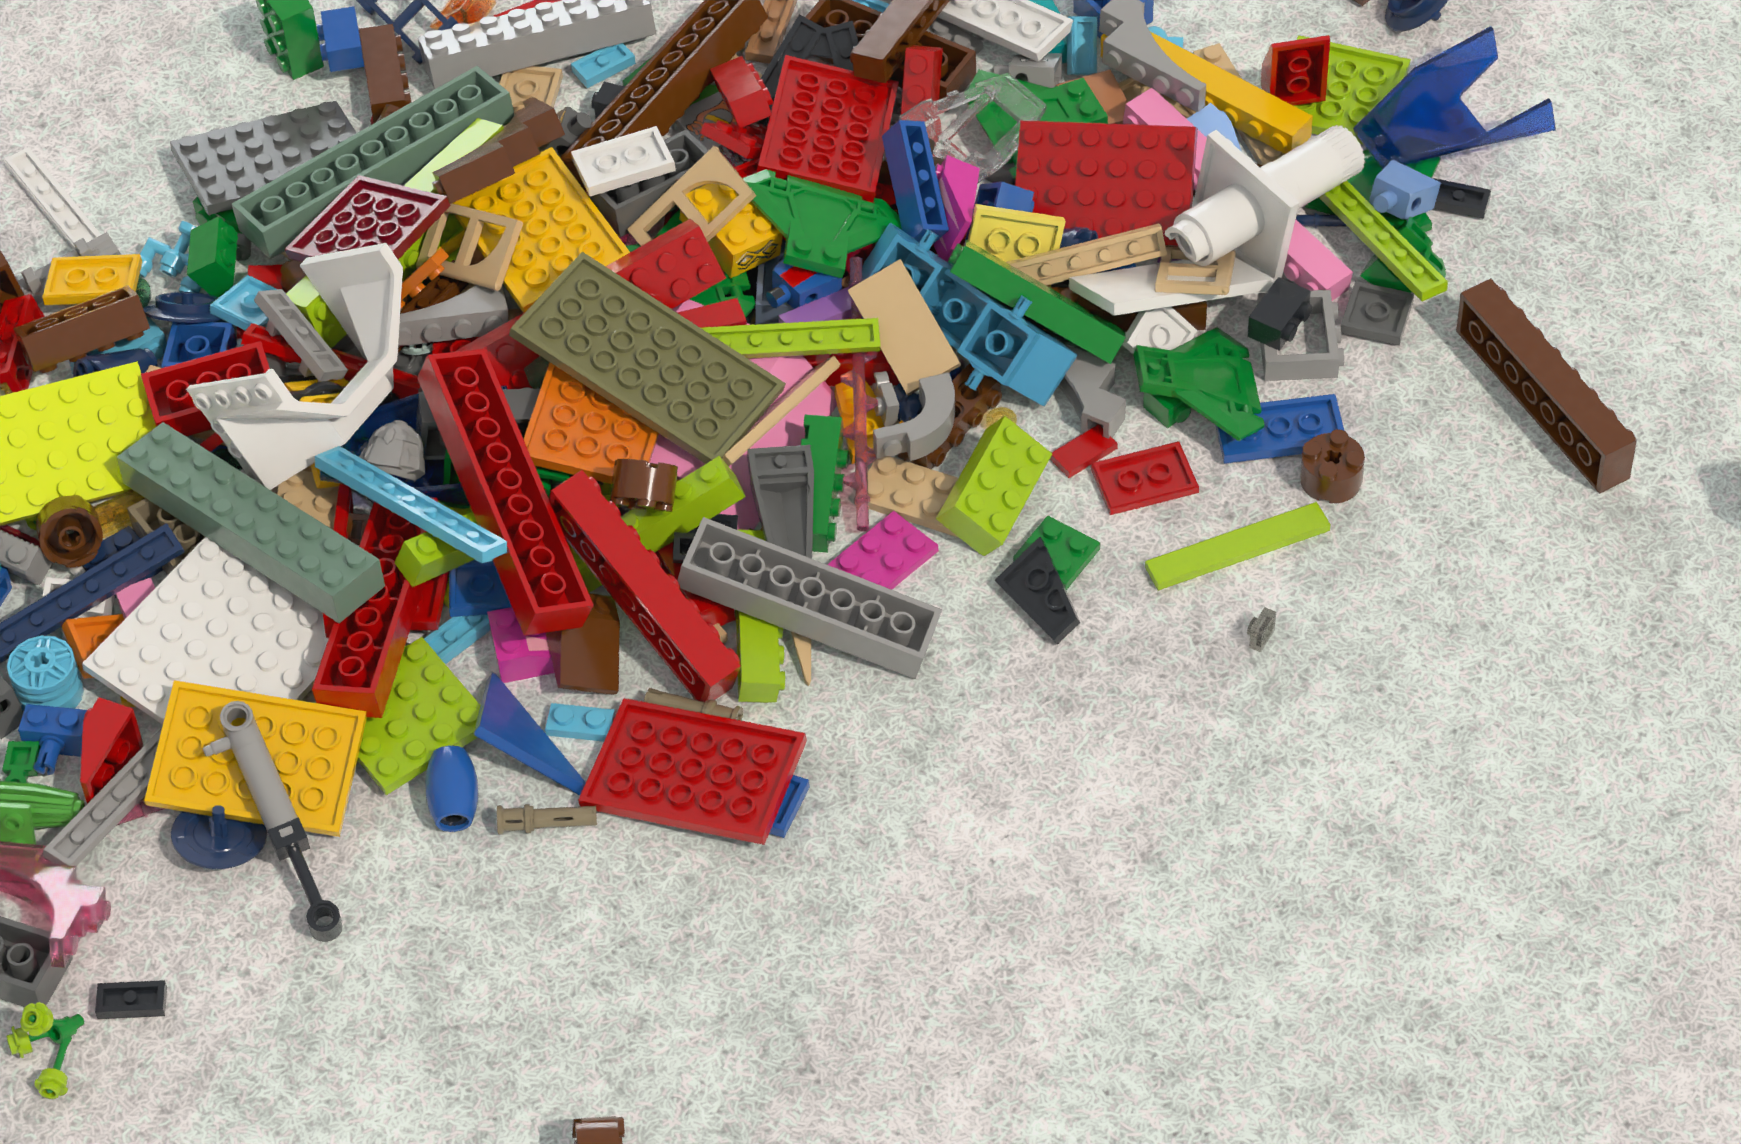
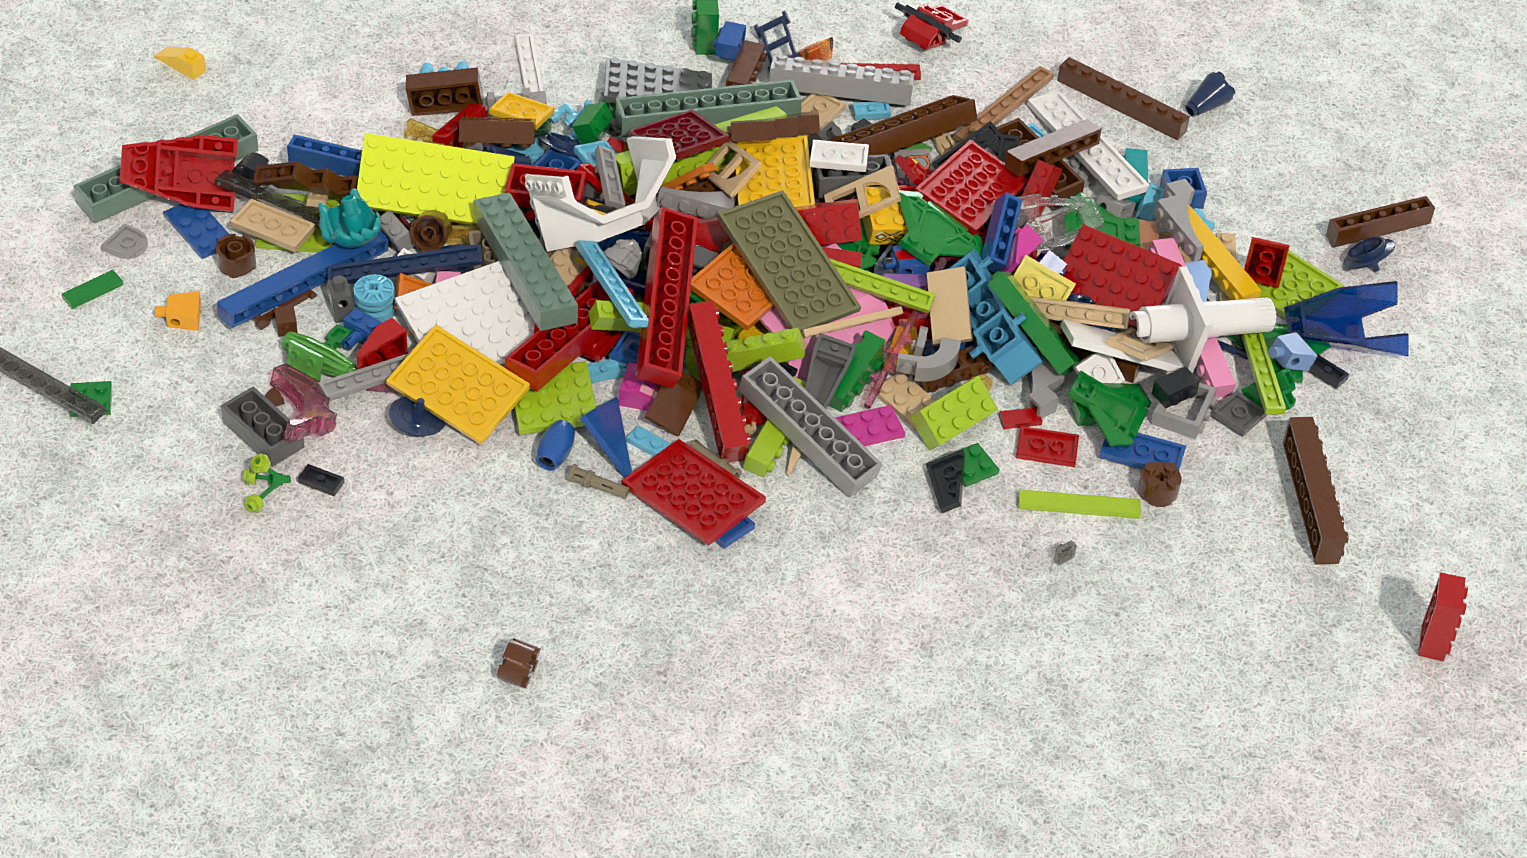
camera: 20 degrees right, 5 degrees down
(274, 808) = (450, 424): light grey piece -> none
(643, 485) = (745, 324): reddish brown brick -> none
(742, 91) = (933, 149): red brick -> none

